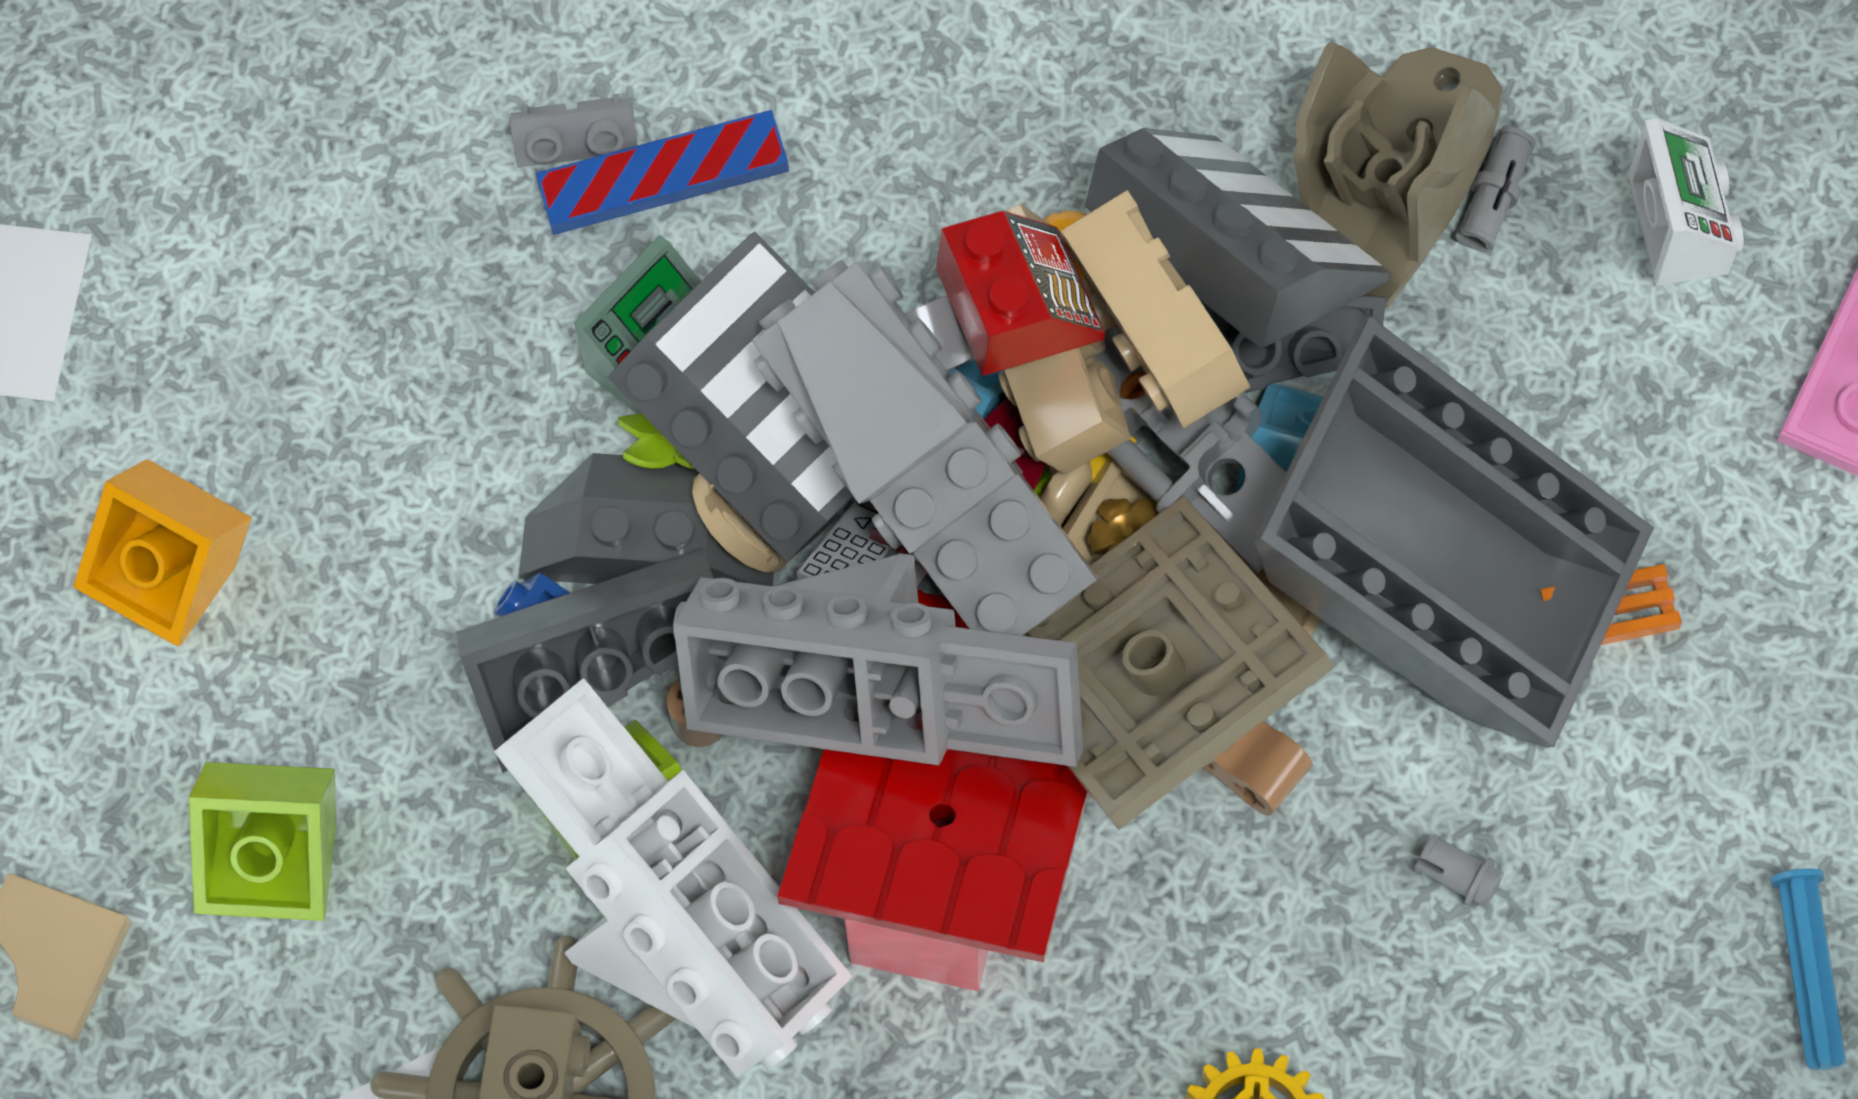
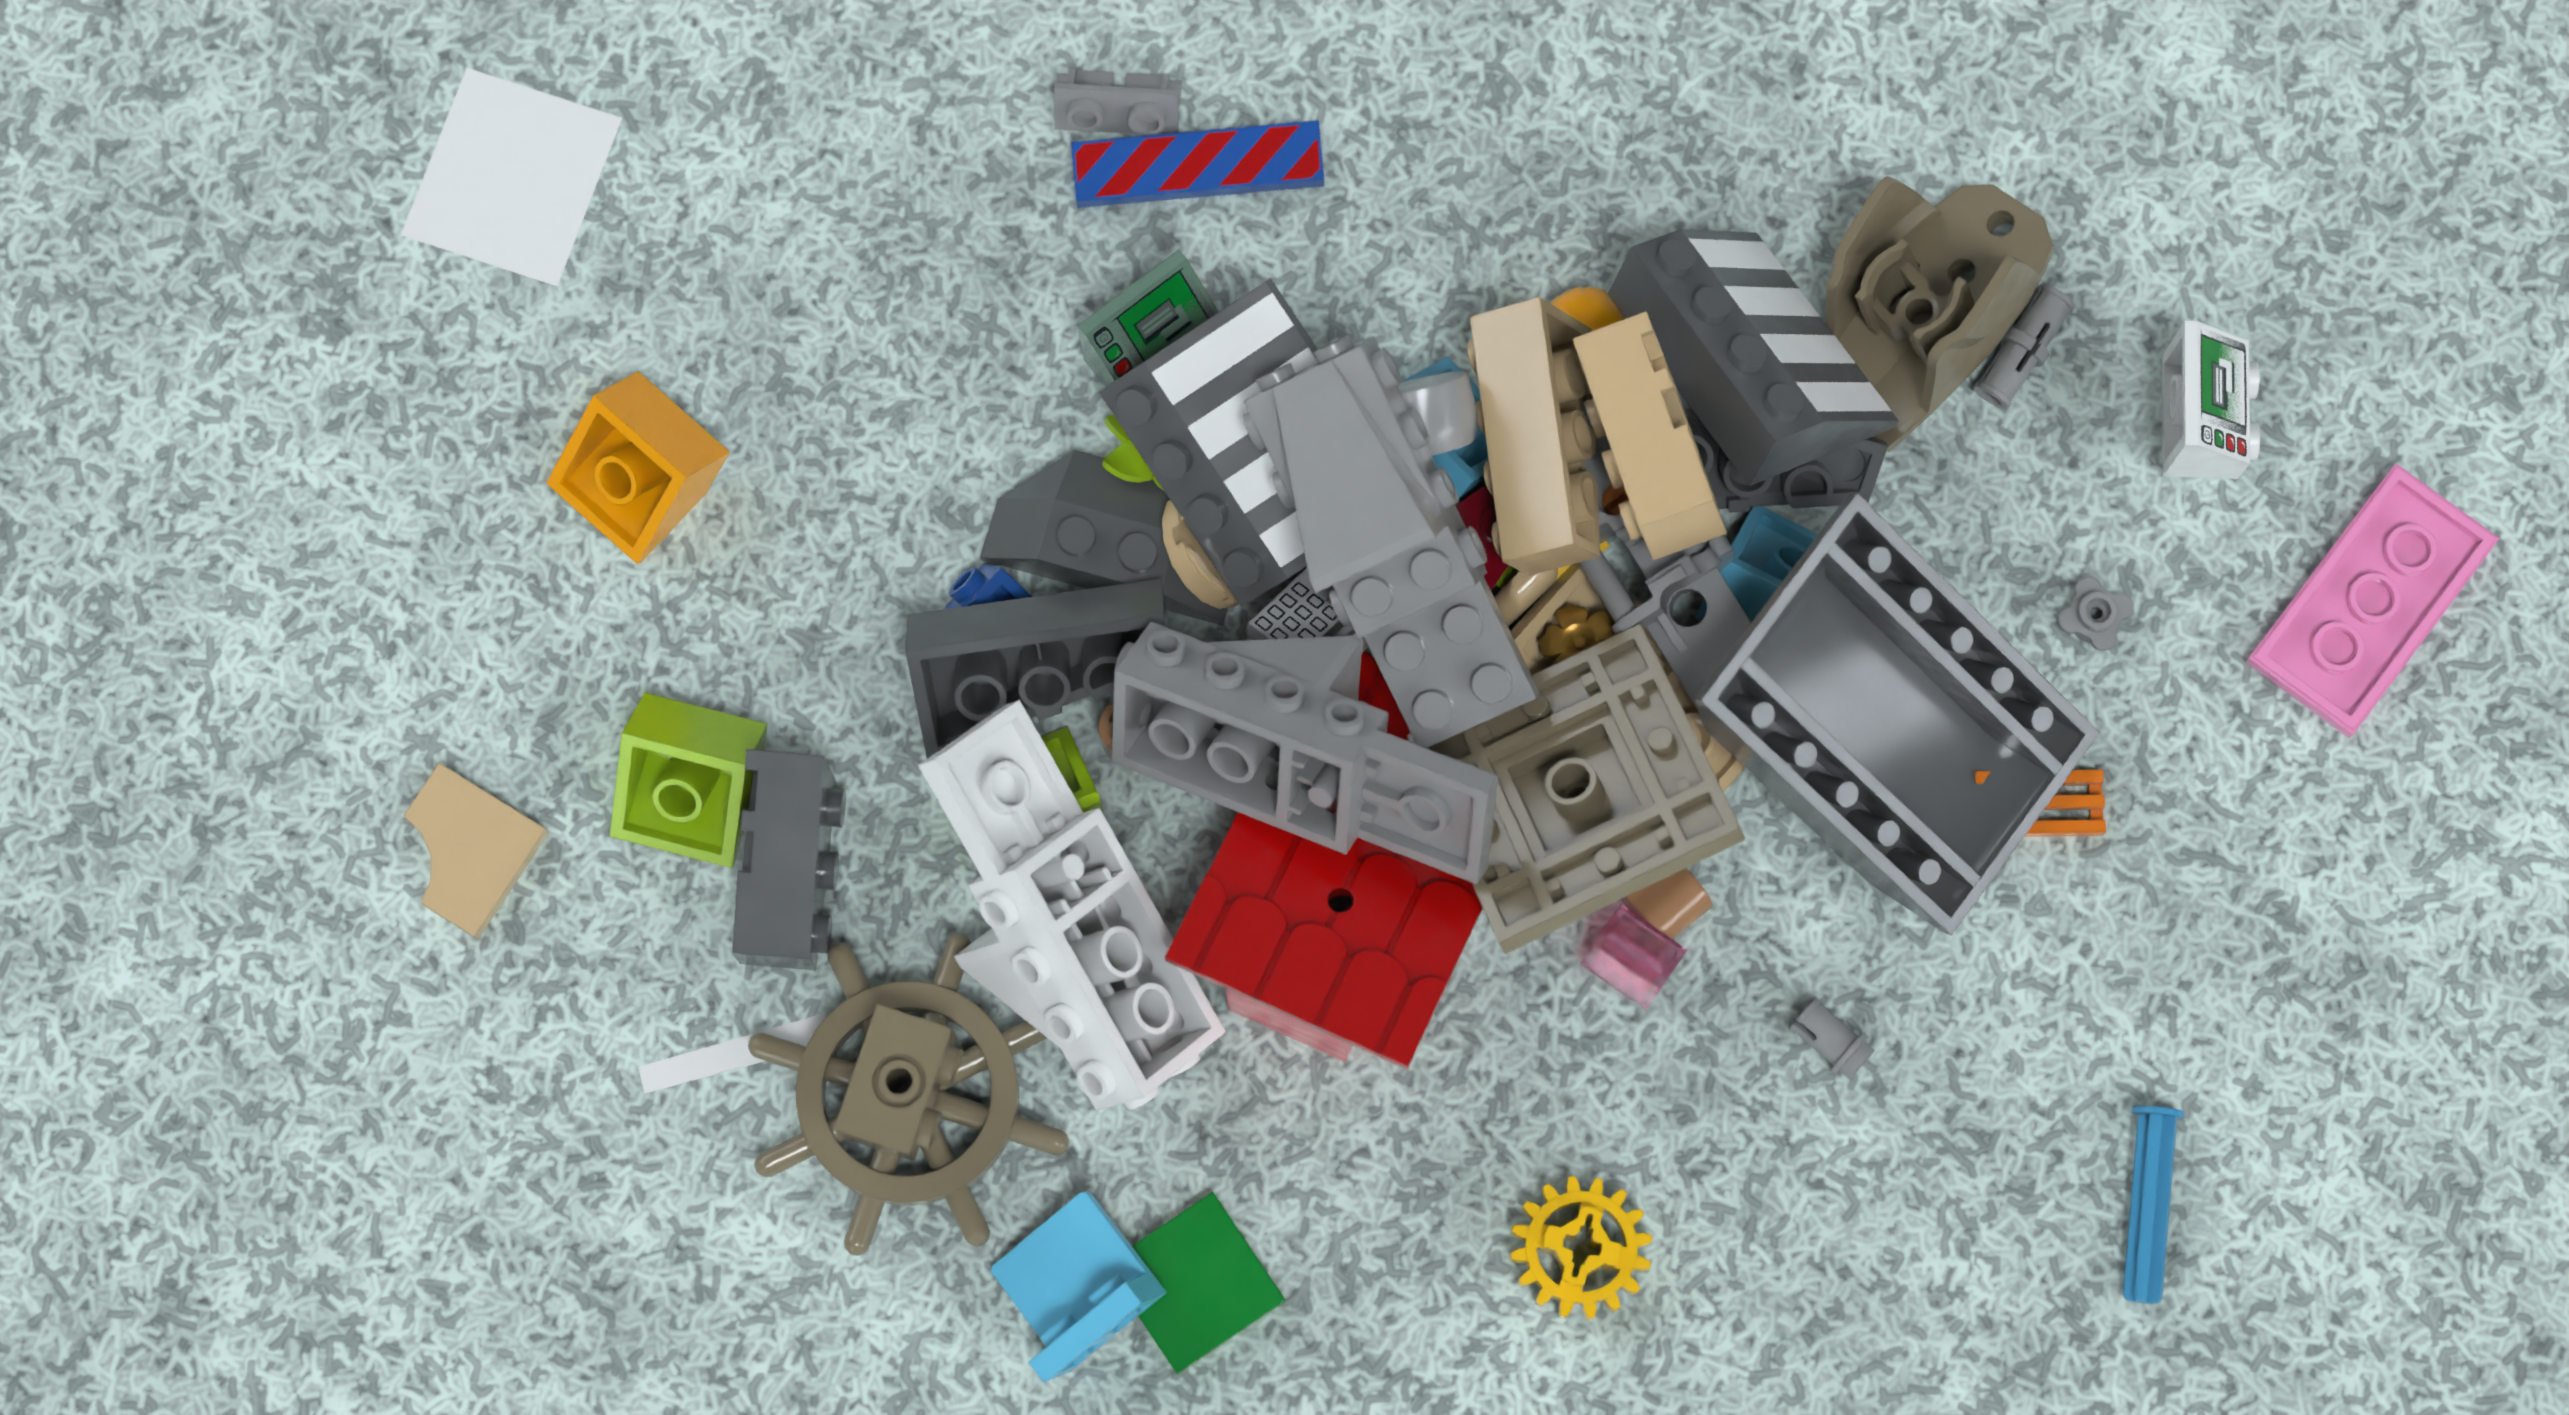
camera: 10 degrees right, 10 degrees up
(377, 895) = (787, 860): none -> dark grey wedge
(1014, 290) = (1515, 395): red slope -> none
(1245, 826) = (1633, 957): none -> clear pink piece
(1629, 437) = (2100, 631): none -> light grey plate

